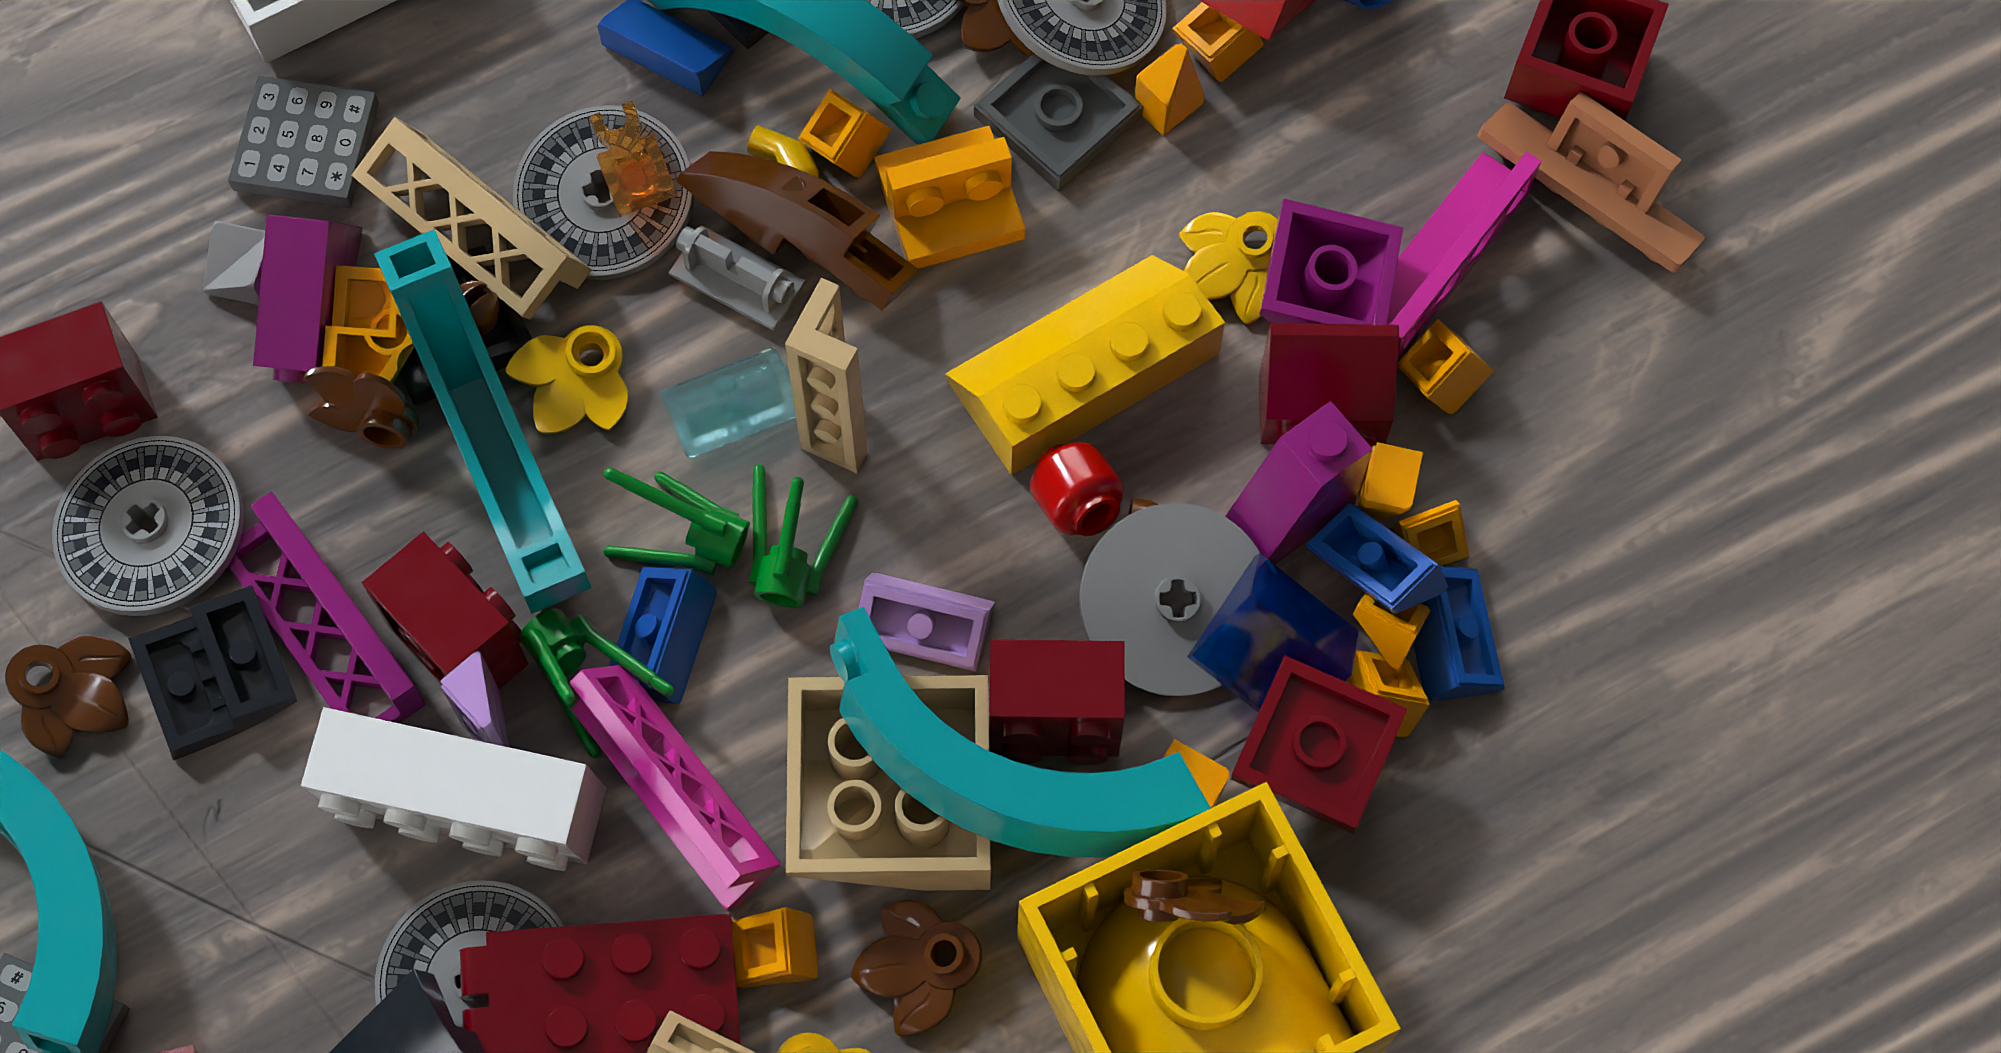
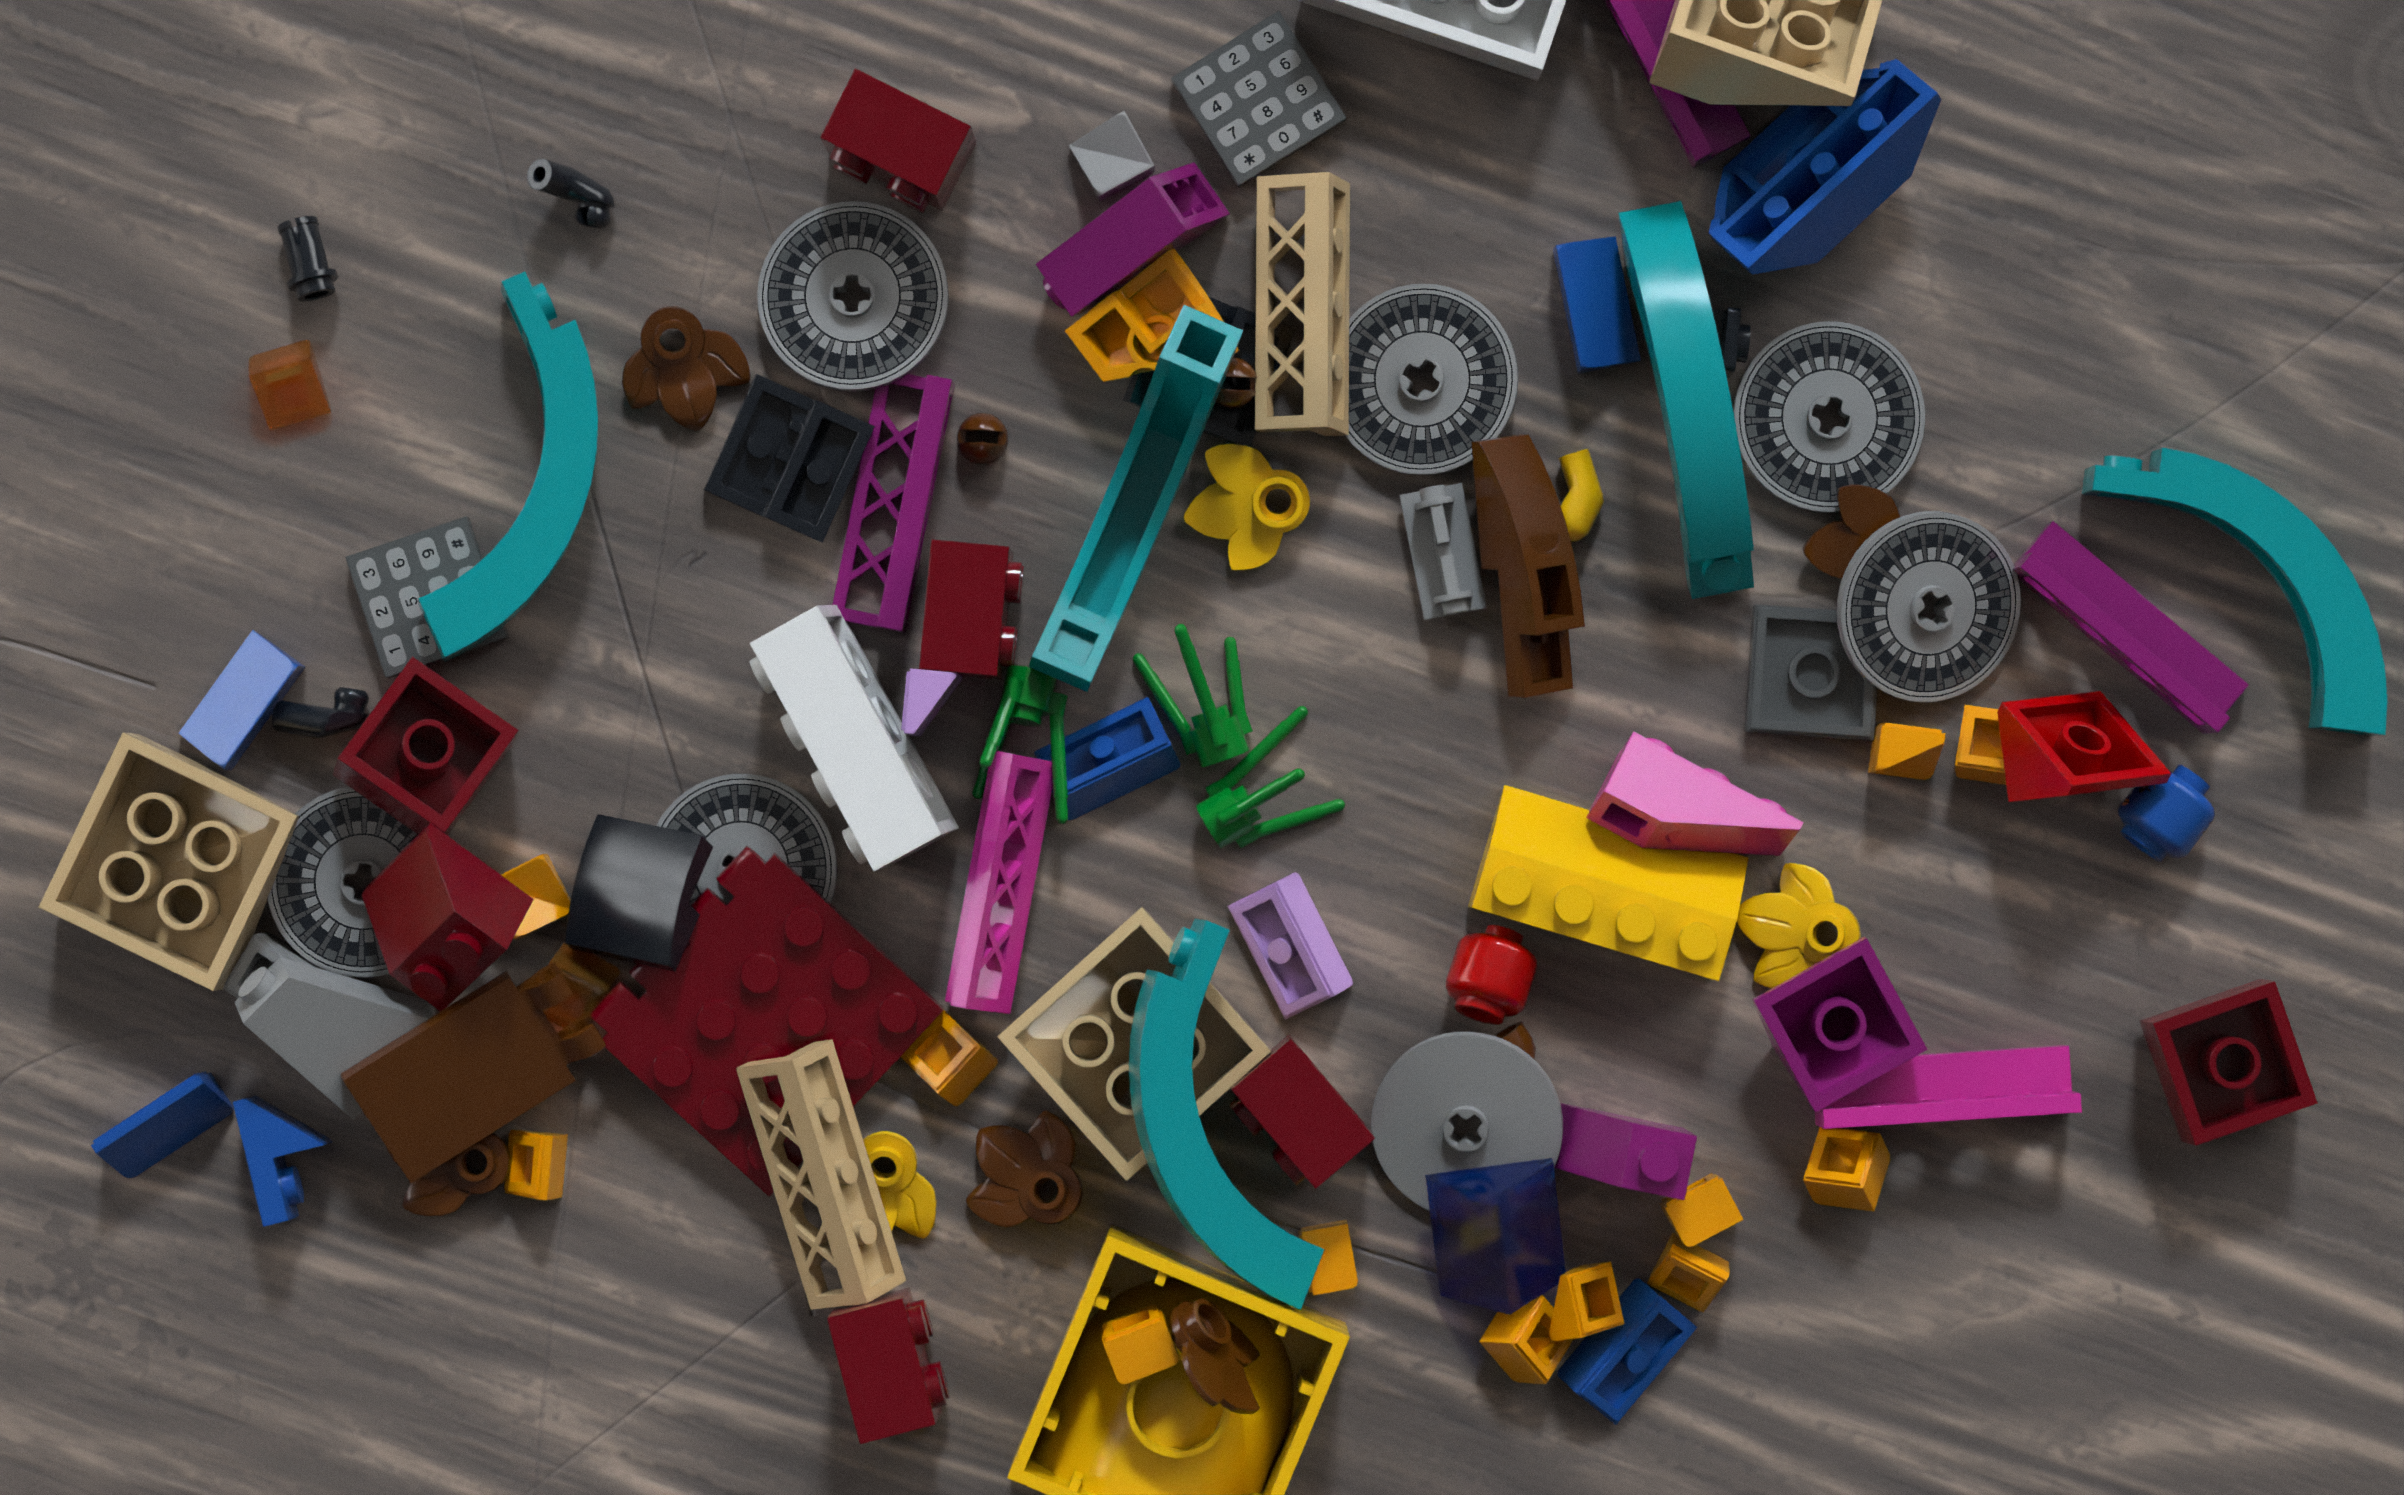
camera: 50 degrees right, 20 degrees up
(349, 528) = (982, 452): none -> reddish brown hinge
(363, 406) = (1084, 392): reddish brown plate -> none
(632, 164) = (1453, 398): clear orange plate -> none
(730, 402) = (1337, 639): clear light blue slope -> none
(826, 382) = (1373, 742): tan fence -> none
(844, 133) = (1640, 523): light orange slope -> none
(951, 196) = (1659, 654): light orange bracket -> none
(1076, 256) = (1677, 805): none -> slope
(1129, 956) = (1139, 1344): none -> light orange slope
(1319, 744) = (1431, 1335): dark red bracket -> none
(1326, 363) = (1736, 1102): dark red slope -> none
(1377, 560) = (1623, 1254): blue slope -> none
(1603, 171) = (2125, 1157): nougat bracket -> none

